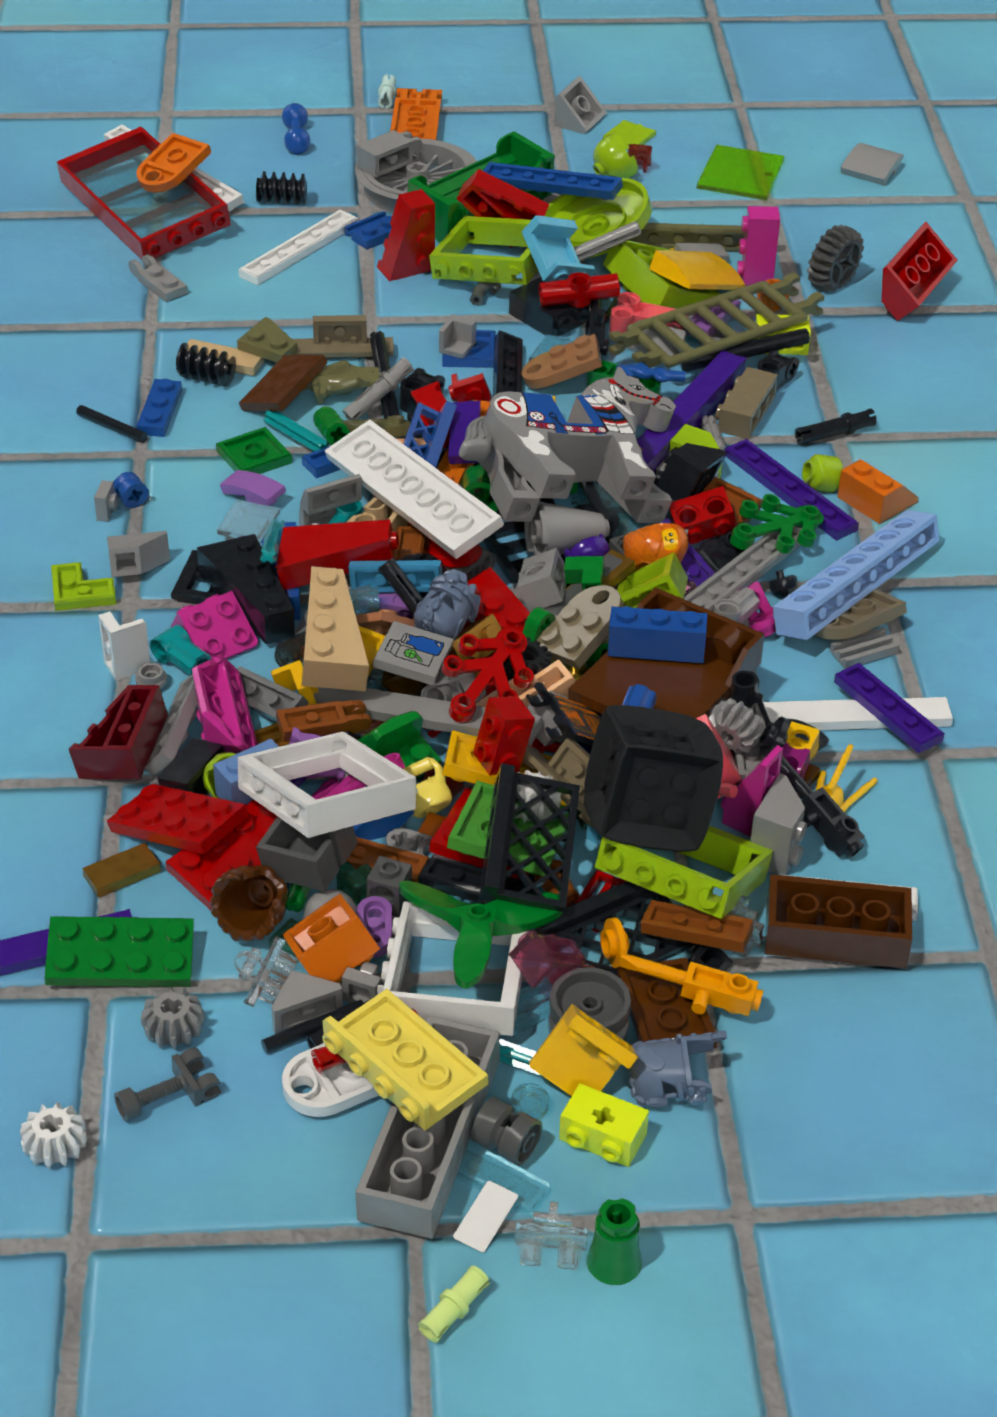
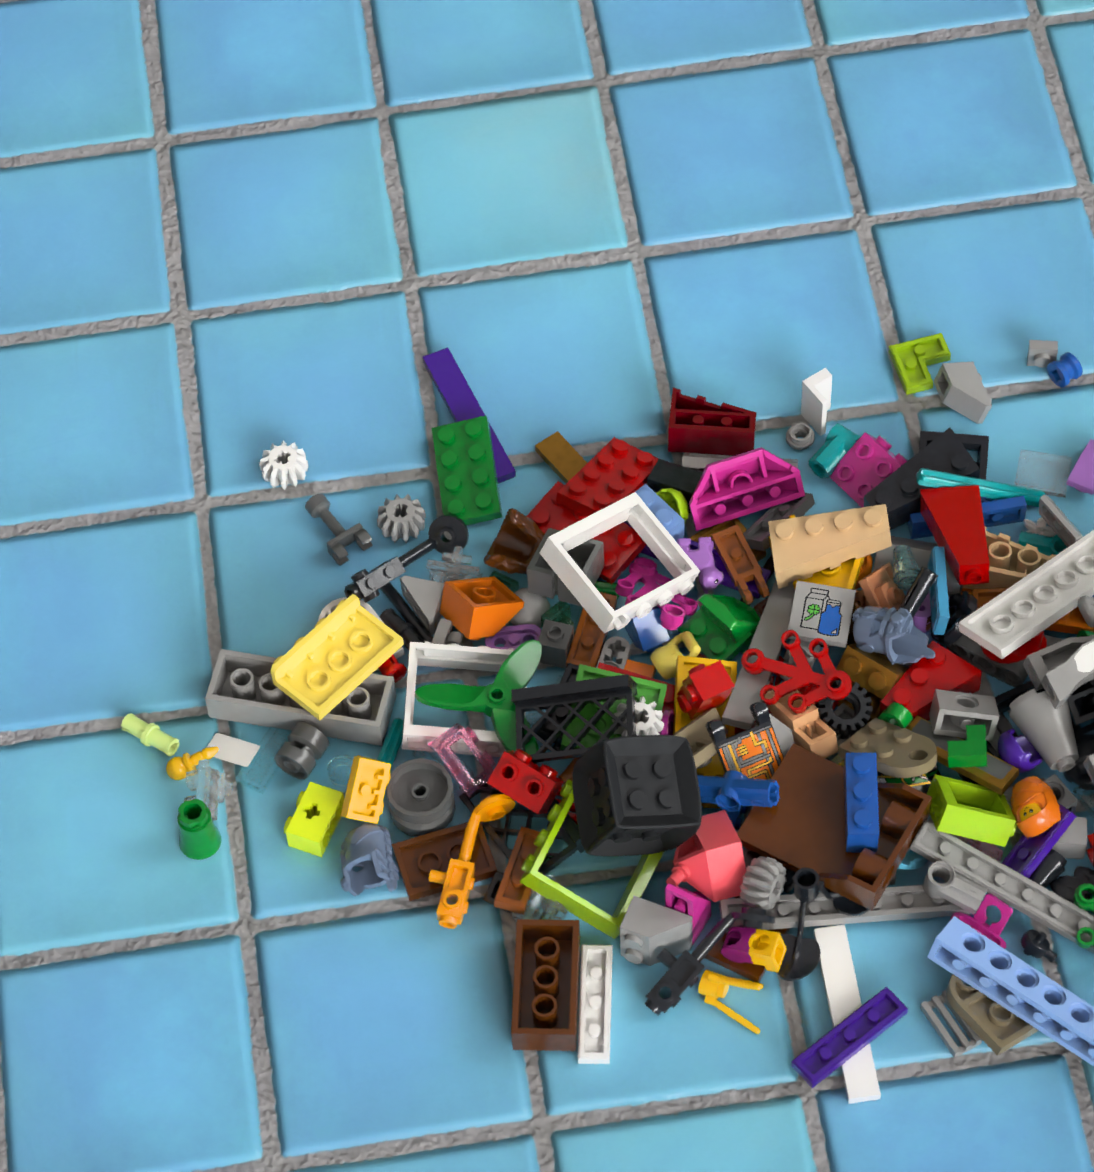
camera: 90 degrees right, 15 degrees up
(213, 977) = (366, 584): none -> black piece
(504, 1277) = (178, 766): none -> yellow bar
(597, 897) = (525, 781): none -> red brick

